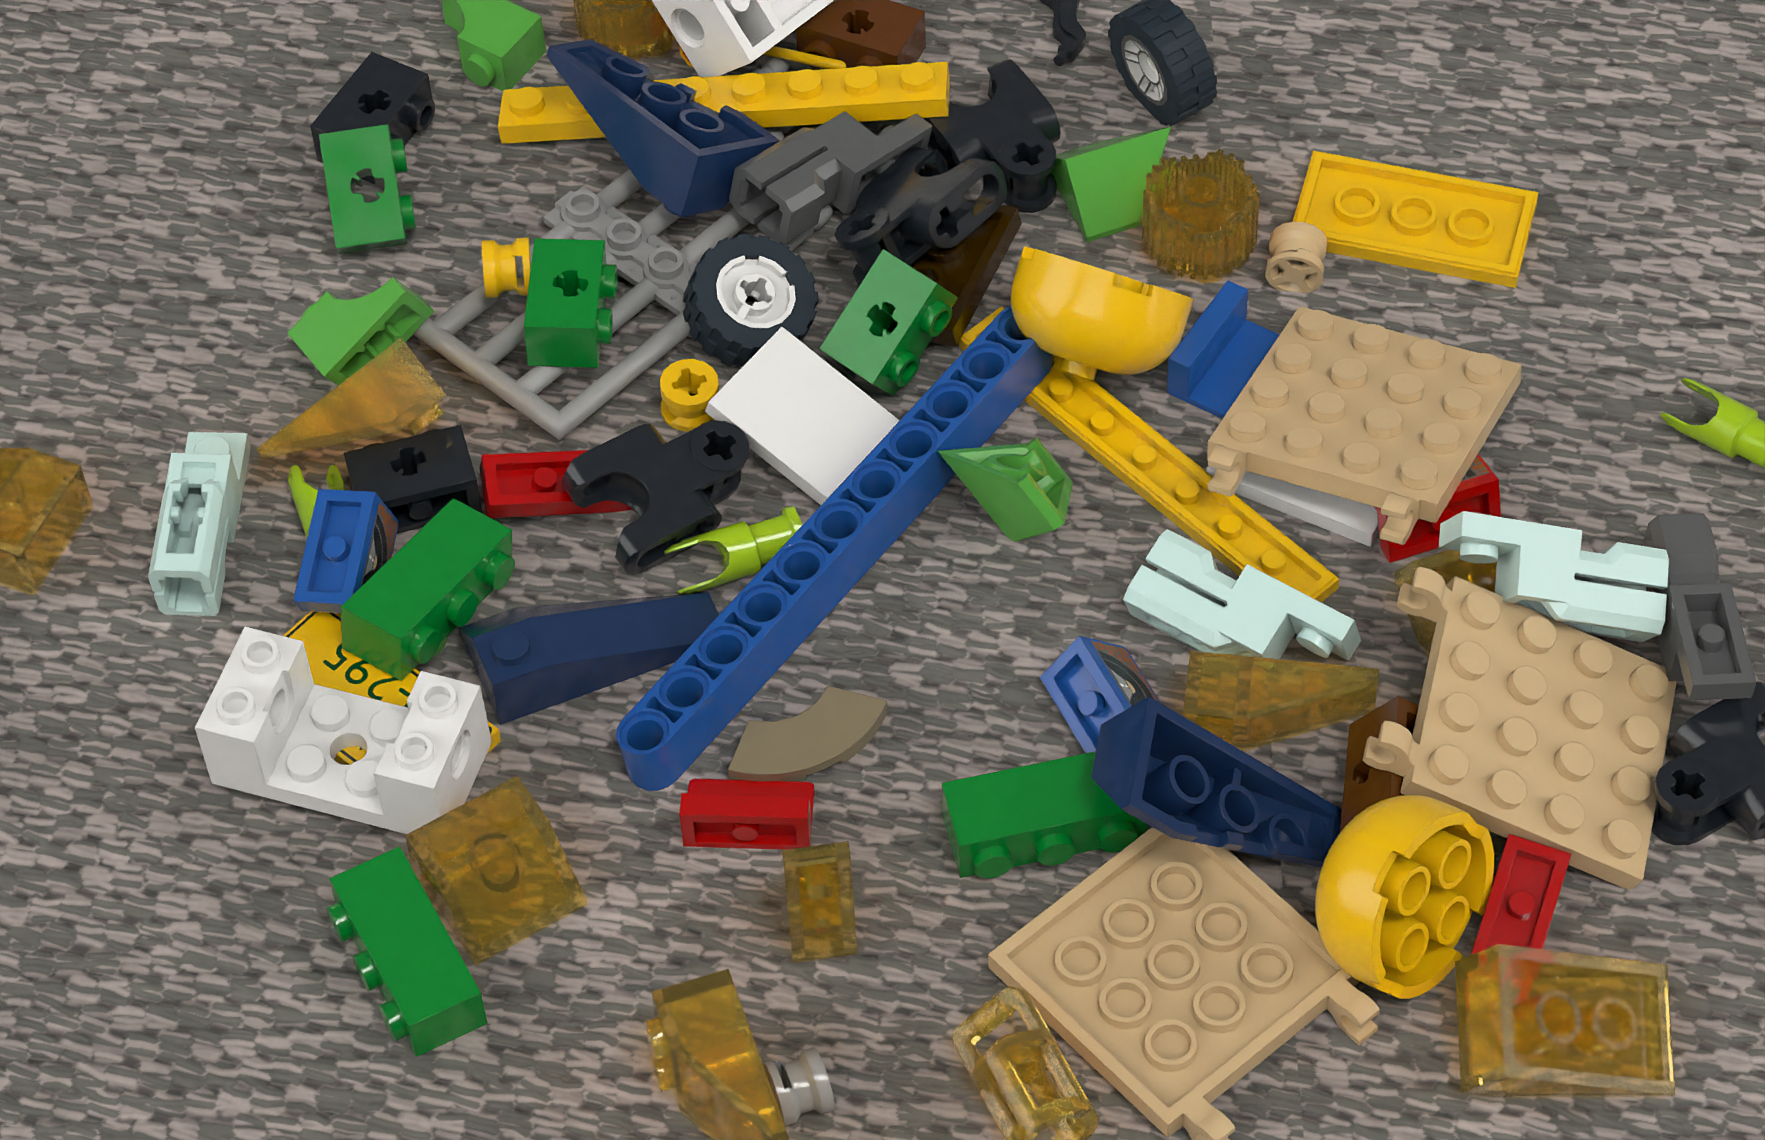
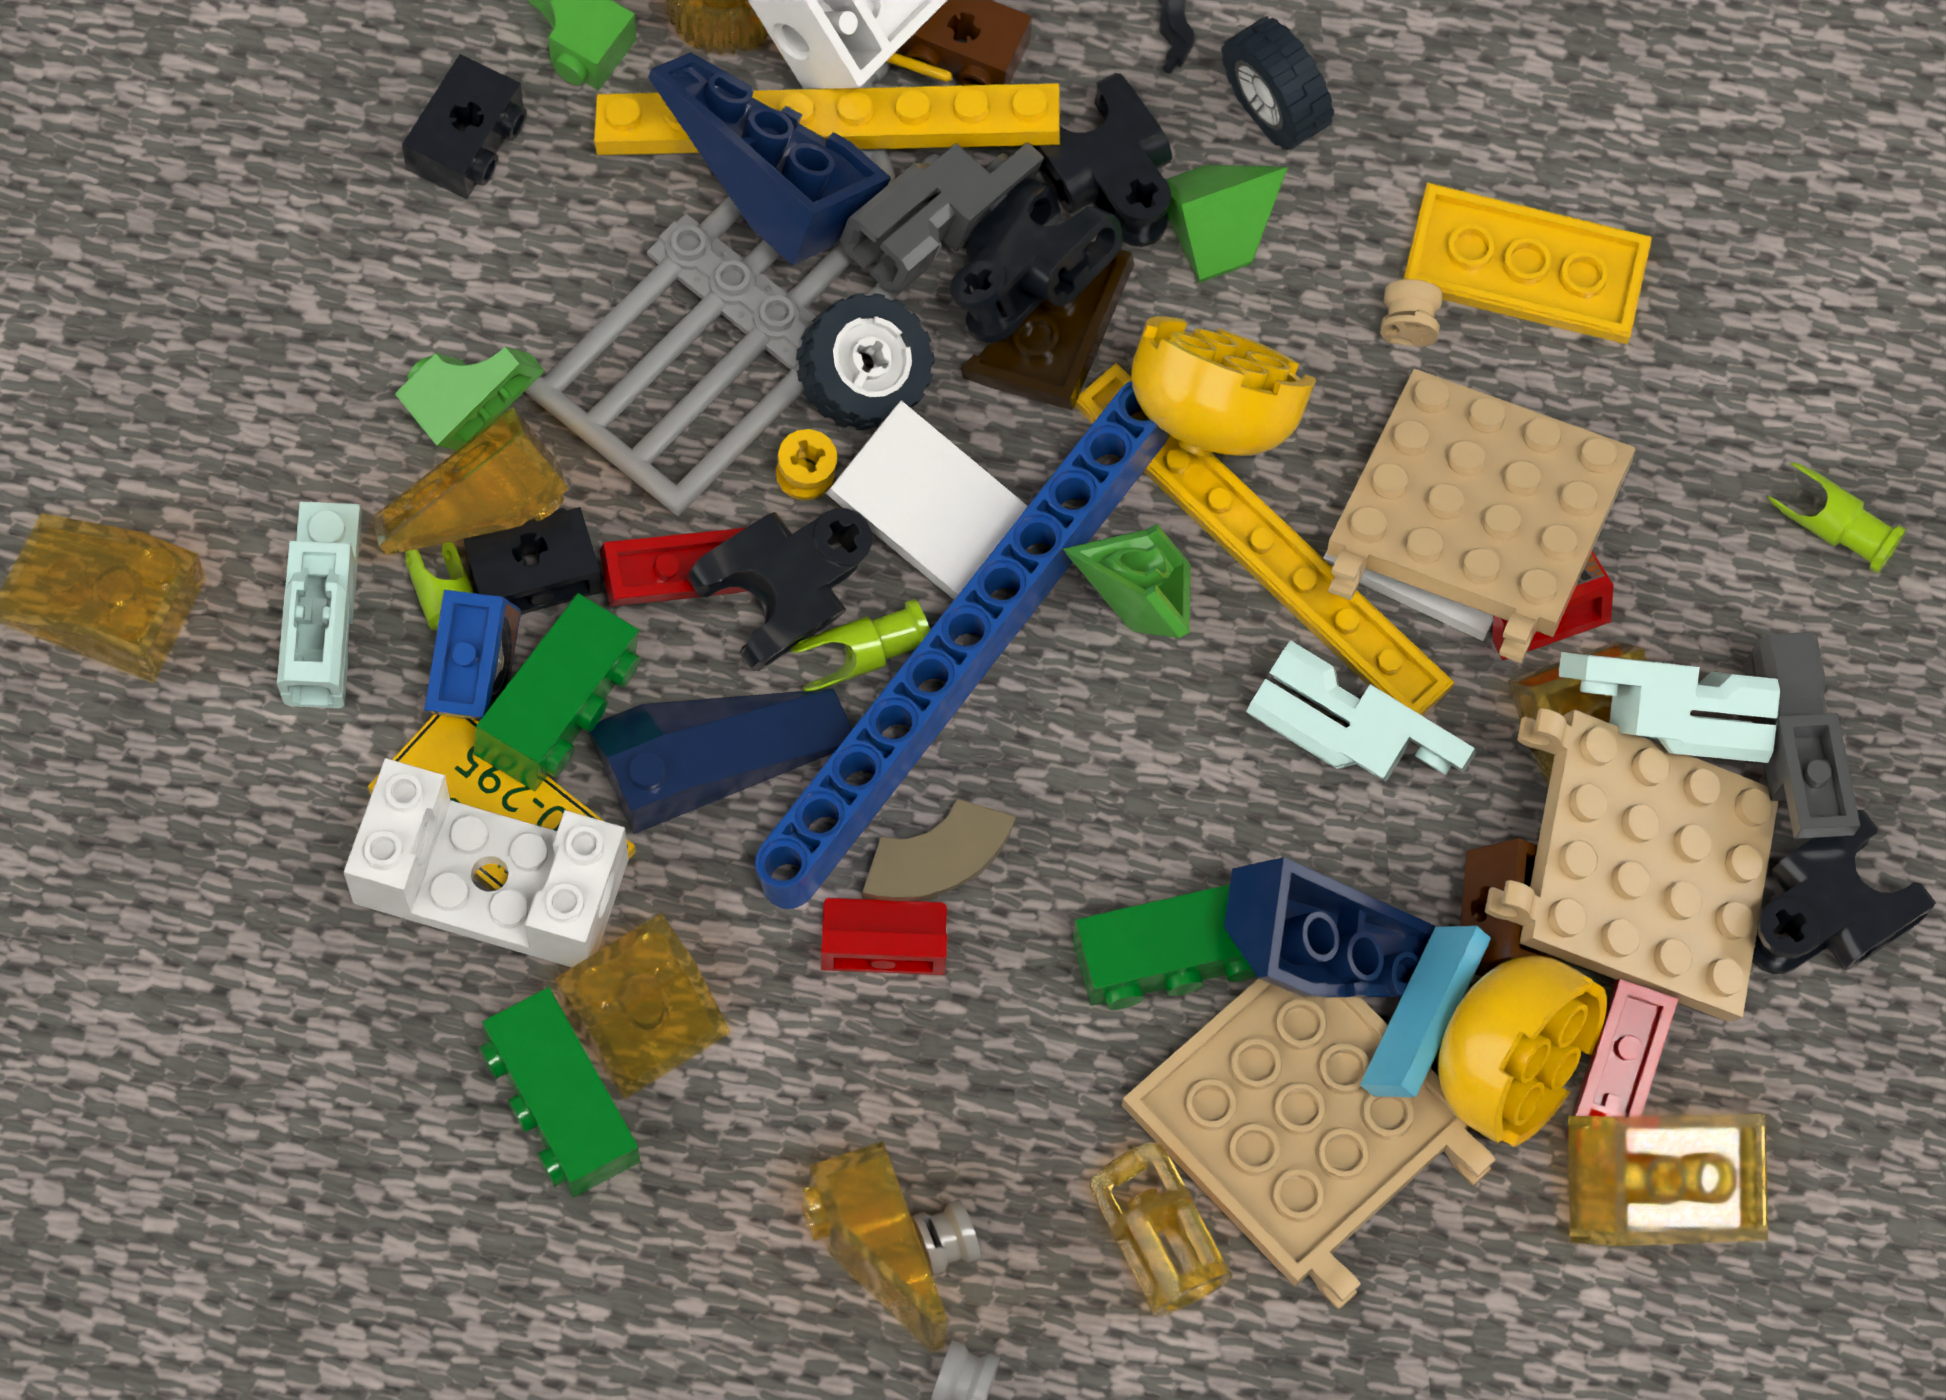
camera: 10 degrees left, 15 degrees up
(346, 160) = (460, 258): green brick -> none
(501, 267) = (611, 324): yellow wheel -> none
(567, 303) = (680, 337): green brick -> none
(819, 901) = (960, 1045): clear yellow slope -> none
(862, 331) = (980, 407): brick -> none
(1093, 685) = (1230, 815): blue panel -> none
(1200, 215) = (1316, 265): clear yellow brick -> none
(1218, 353) = (1339, 426): blue panel -> none
(1272, 699) = (1372, 821): clear yellow slope -> none
(1298, 868) = (1425, 1011): none -> medium azure tile

